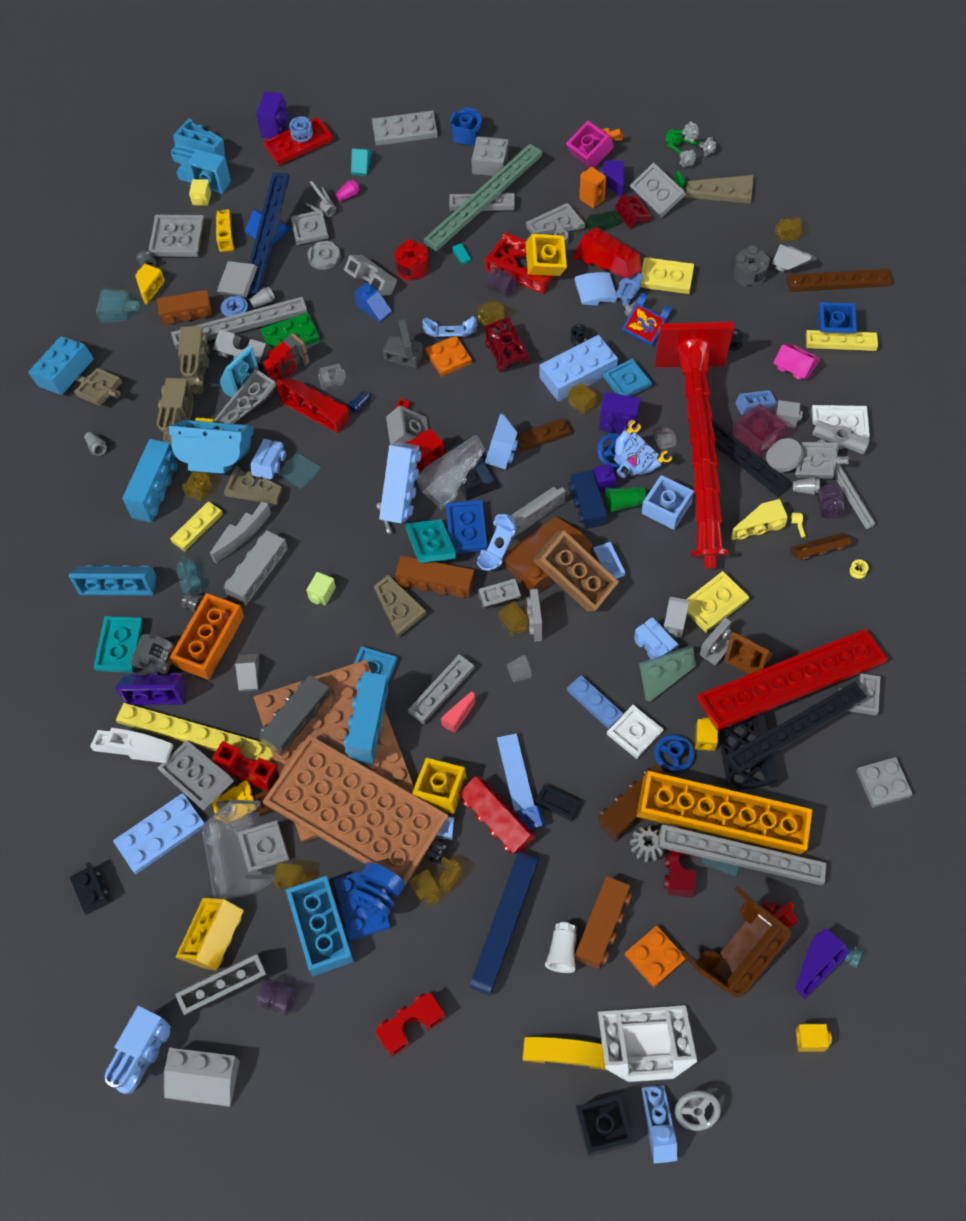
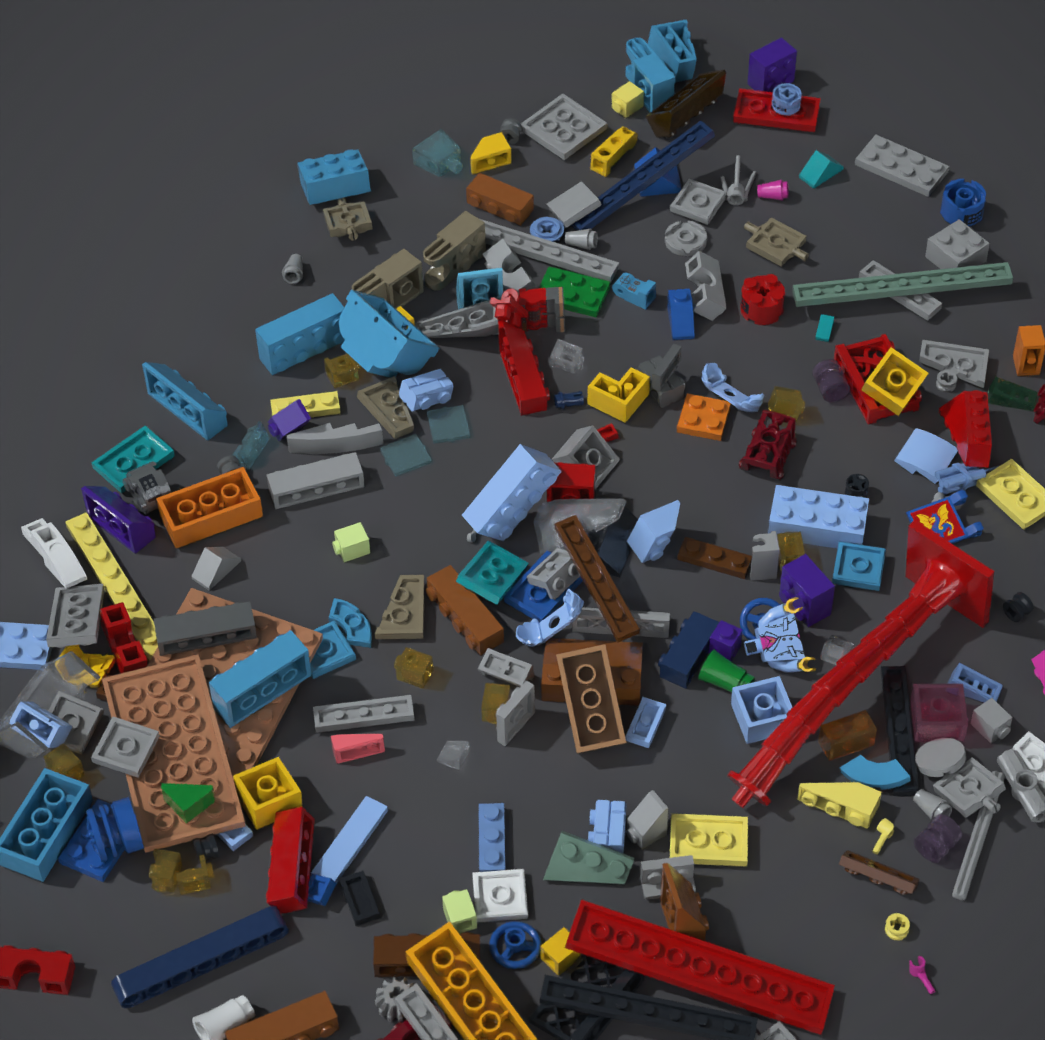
camera: 40 degrees right, 10 degrees down
(201, 541) = (288, 420): none -> dark purple slope
(241, 170) = (686, 103): none -> dark brown slope
(252, 863) = (41, 723): none -> light blue brick
(274, 368) = (508, 307): none -> red hips
(293, 509) = (405, 455): none -> clear light blue piece
(328, 307) = (635, 290): none -> dark azure leg
(328, 831) = (125, 746): none -> light grey plate
(372, 638) = (352, 621): none -> dark azure tile
(381, 221) = (776, 241): none -> dark tan plate
(388, 379) = (620, 397): none -> yellow brick
(402, 832) = (188, 799): none -> green slope
(442, 636) = (413, 667): none -> clear yellow brick
(468, 511) = (554, 573): none -> light grey bracket
(502, 496) = (597, 578): none -> reddish brown plate
(579, 411) = (765, 557): none -> light grey hinge
(625, 760) = (460, 911): none -> yellowish green brick
(727, 476) = (847, 735): none -> clear orange brick
(761, 492) = (874, 774): none -> dark azure tile
(891, 586) = (919, 971): none -> dark pink hand

